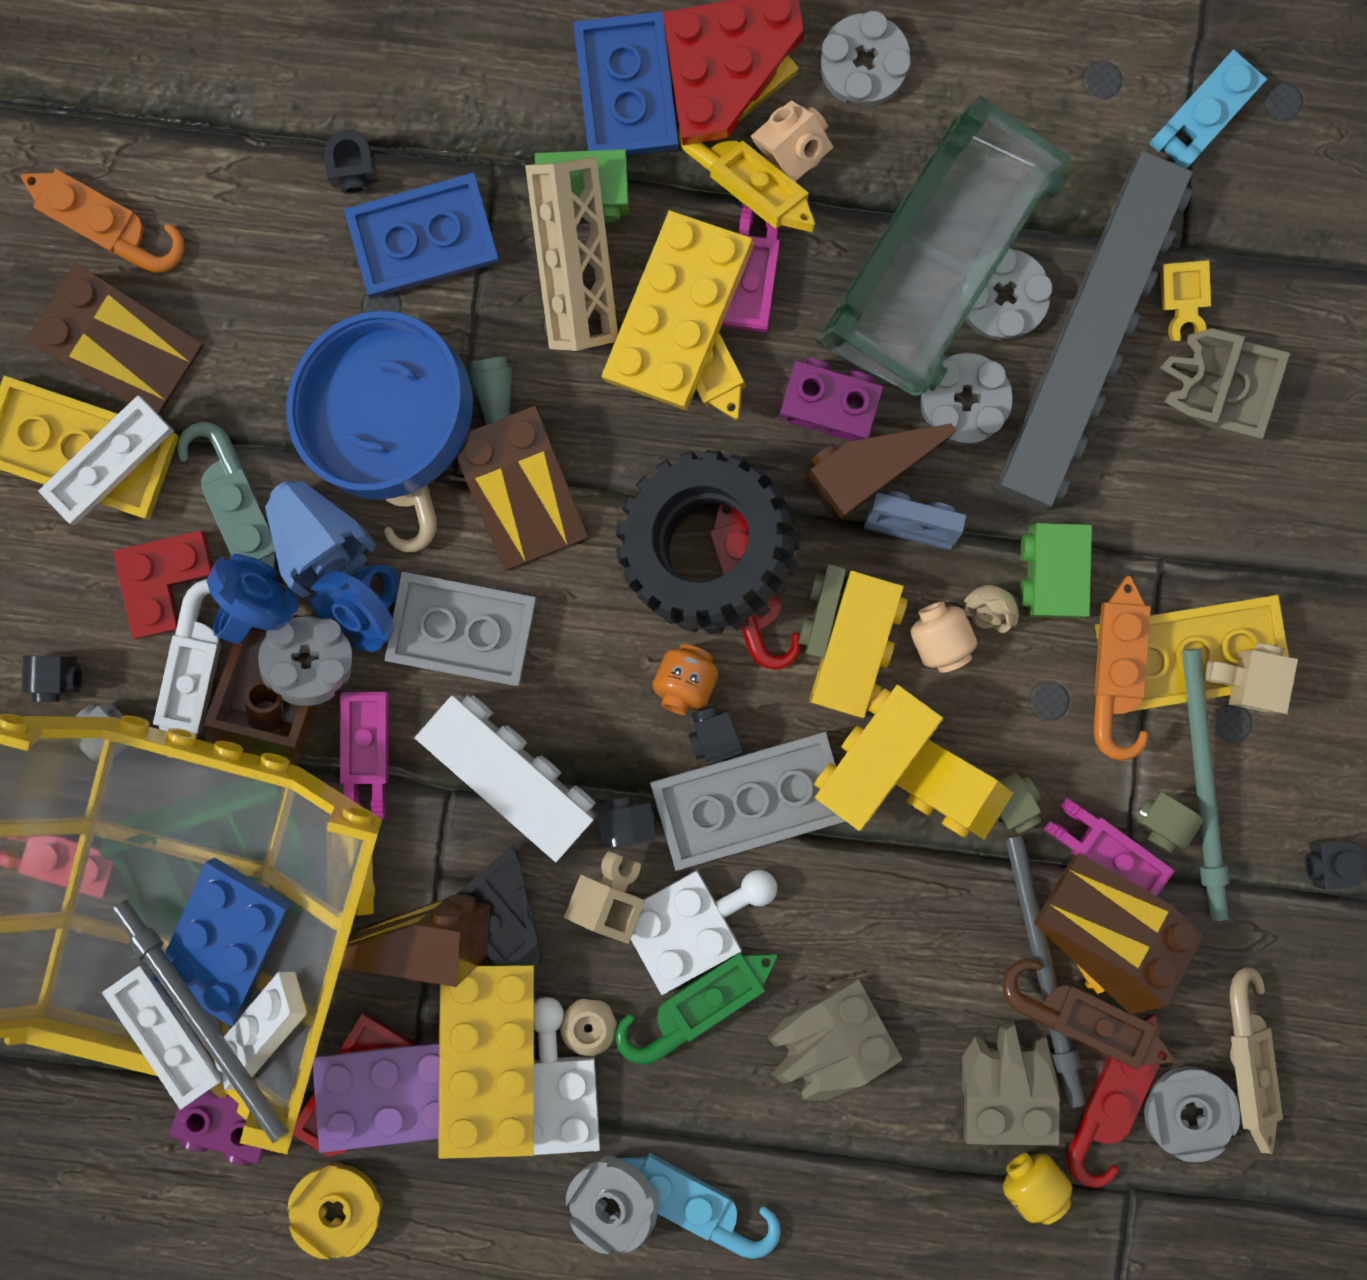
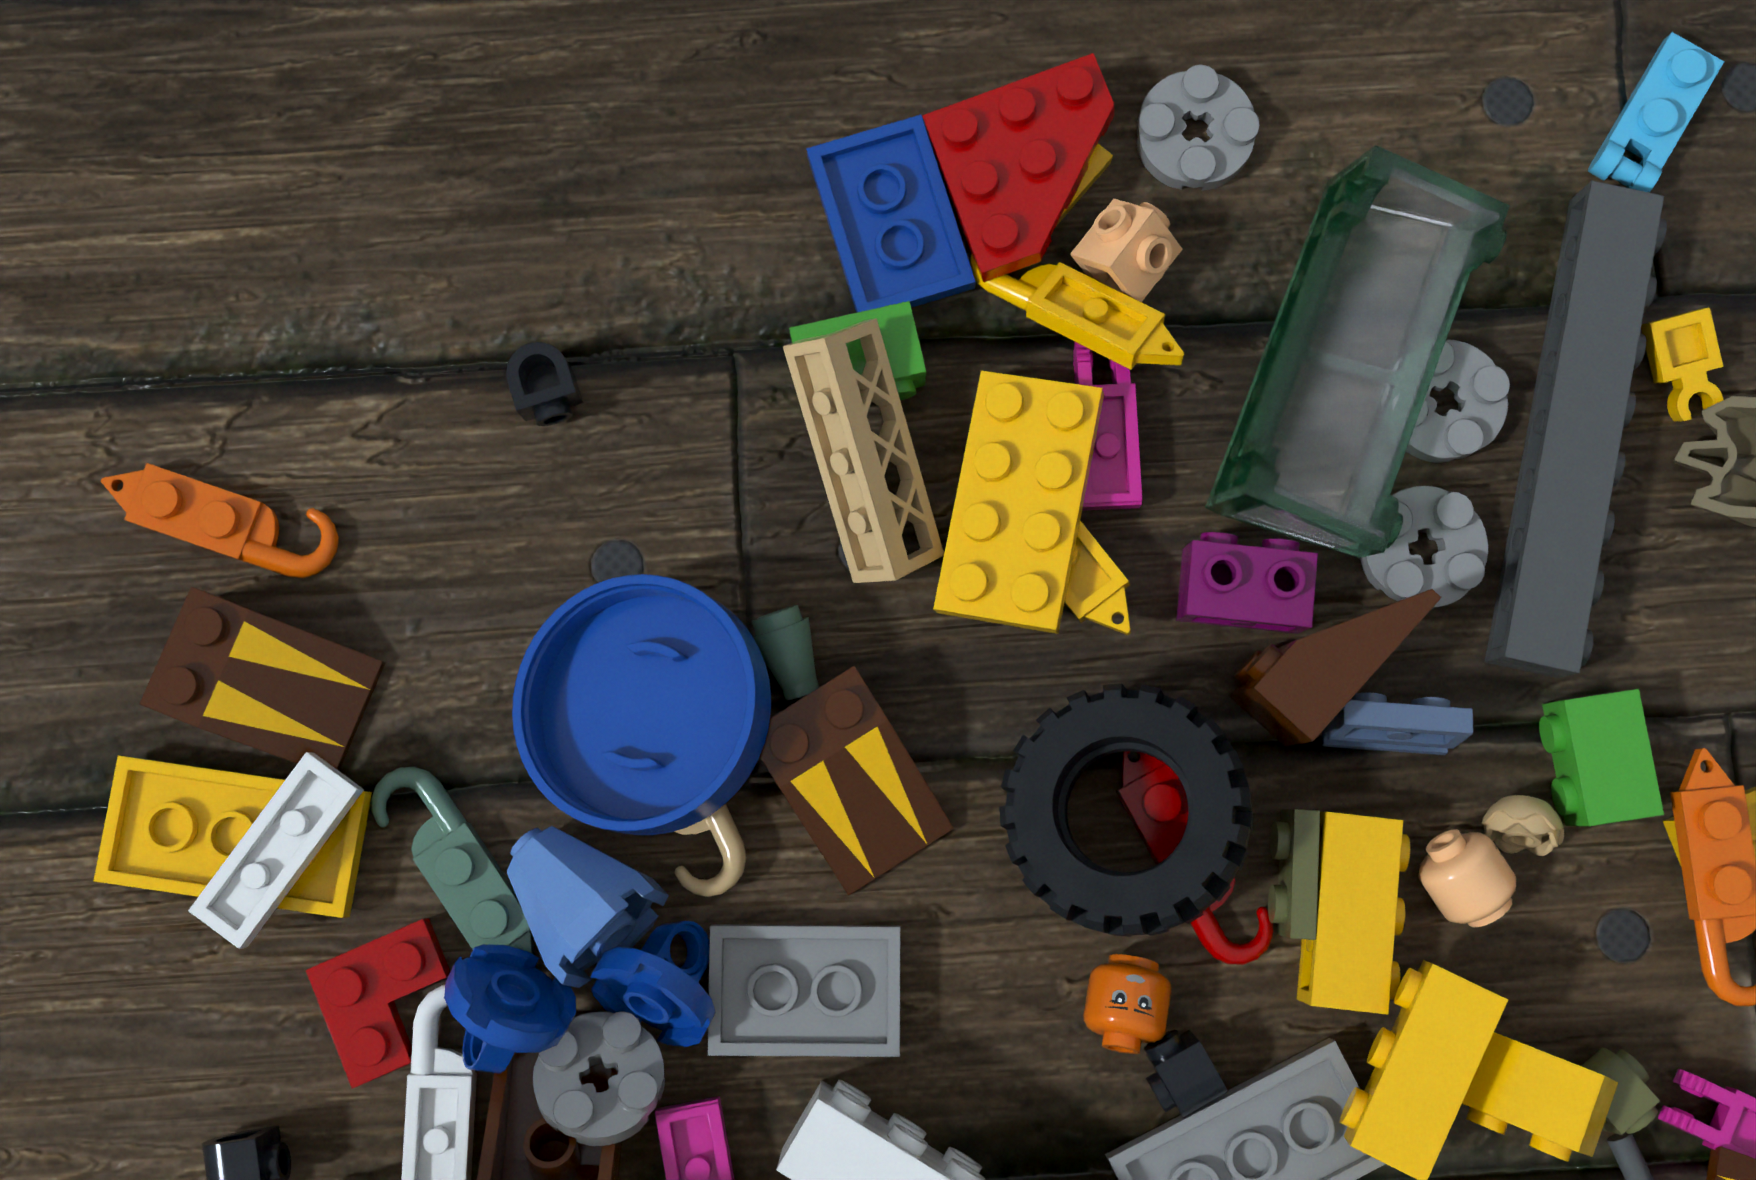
camera: 15 degrees left, 5 degrees down
(421, 235) = (655, 463): blue plate -> none

